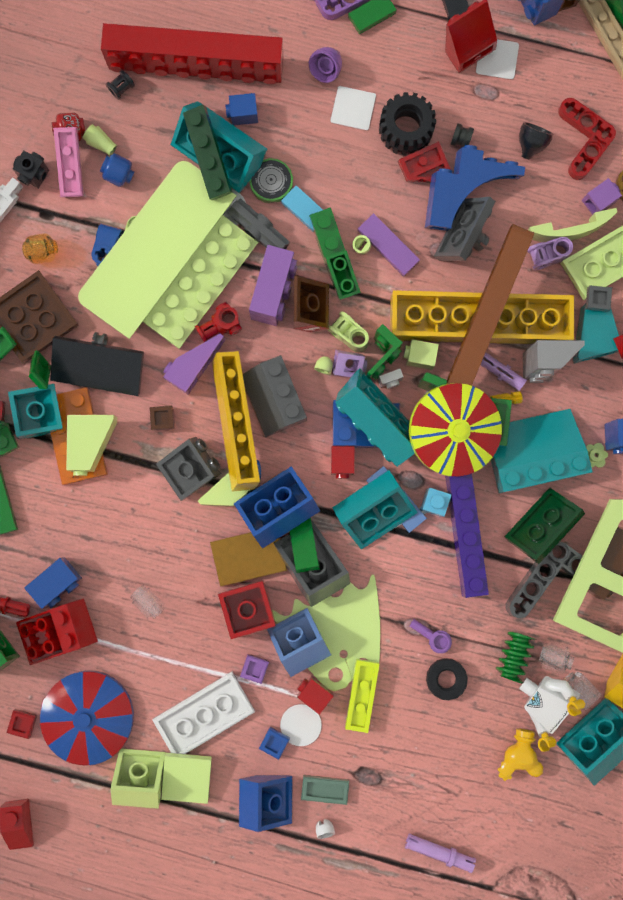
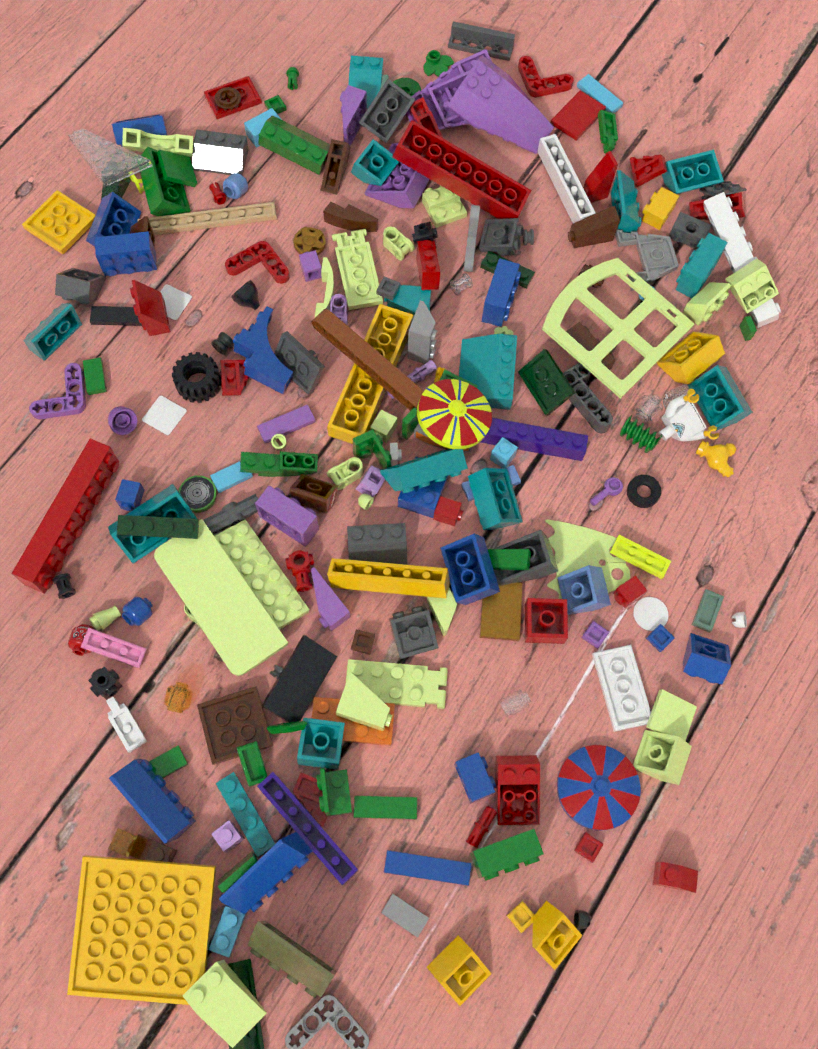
camera: 70 degrees left, 15 degrees down
(105, 240) = (196, 639): blue piece -> none
(131, 471) = (401, 682): none -> yellowish green hinge
(443, 854) = (782, 532): lavender pin -> none

